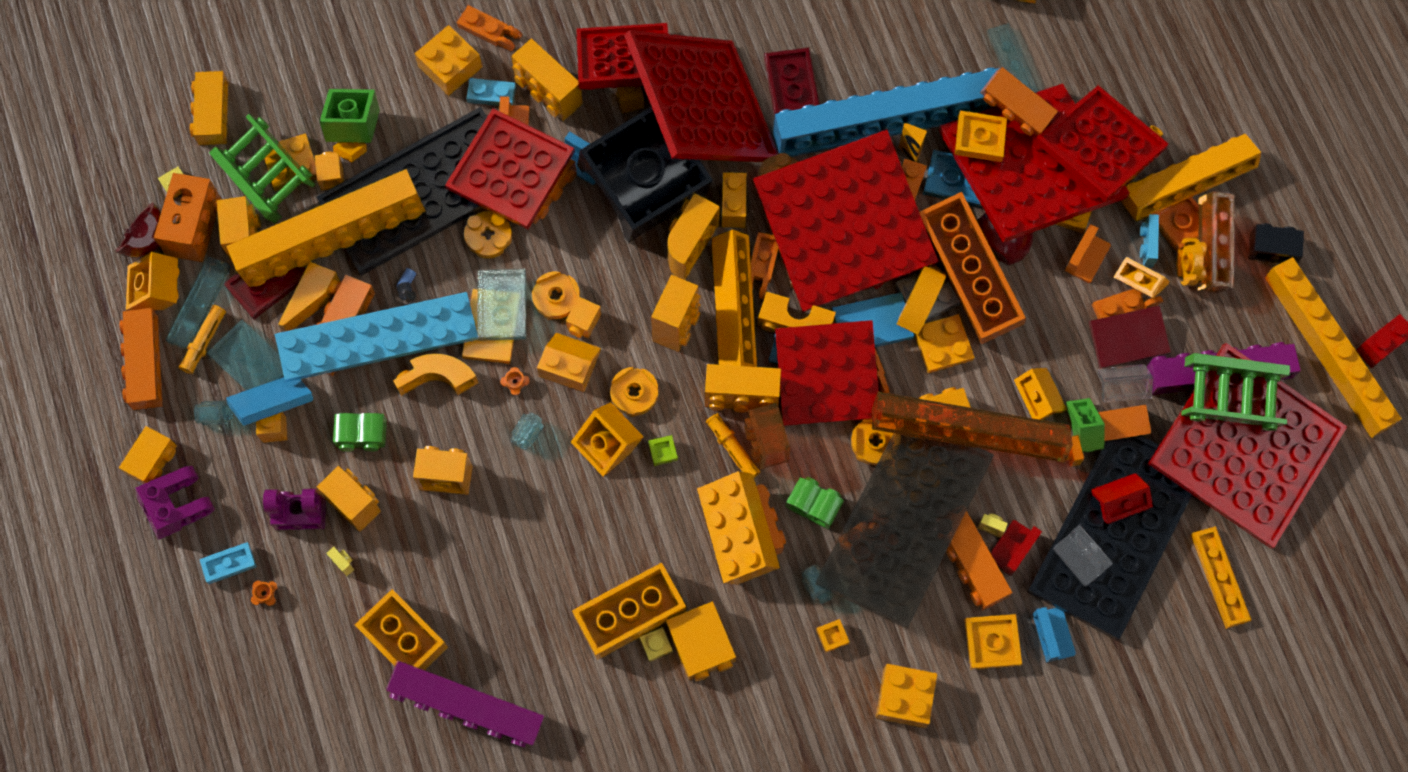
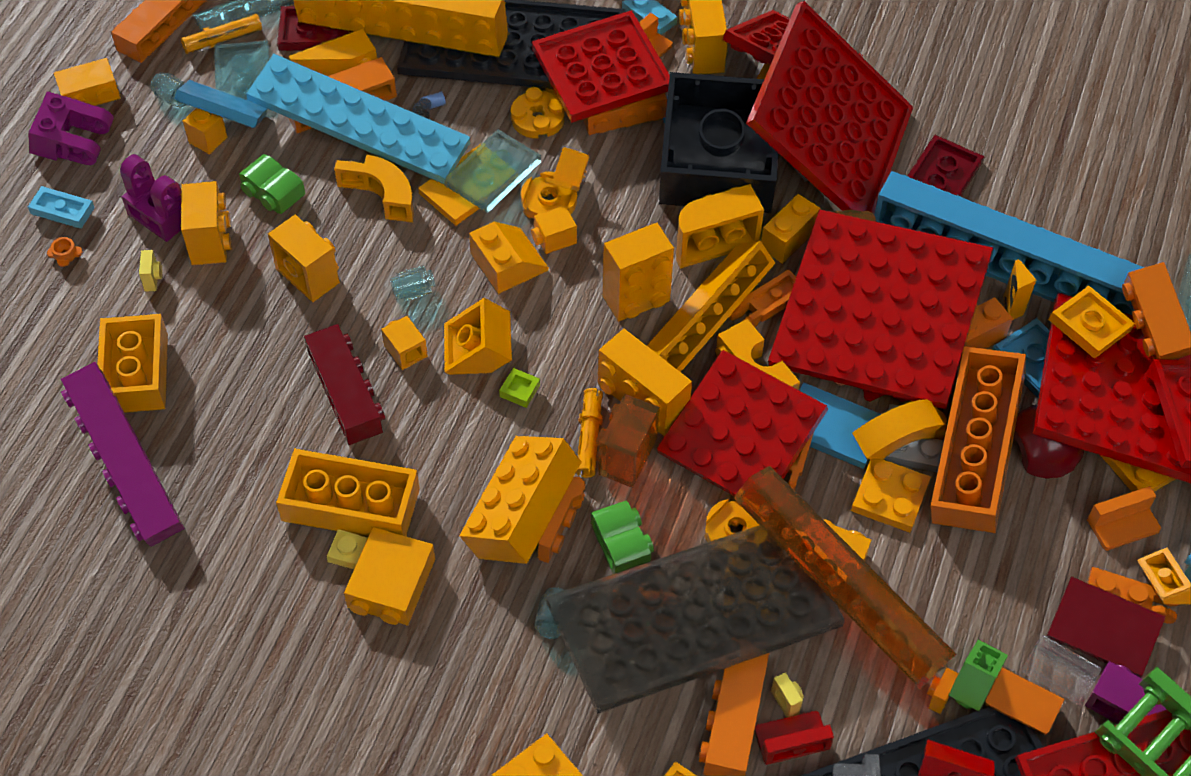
camera: 40 degrees right, 15 degrees down
(507, 381) = (442, 233): orange plate -> none
(550, 537) = (344, 384): none -> dark red brick
(559, 269) = (570, 169): none -> light orange bracket
(560, 477) = (404, 342): none -> light orange brick
(637, 378) = (542, 335): light orange plate -> none
(832, 635) = (522, 672): light orange plate -> none
(1040, 393) = (956, 609): light orange panel -> none

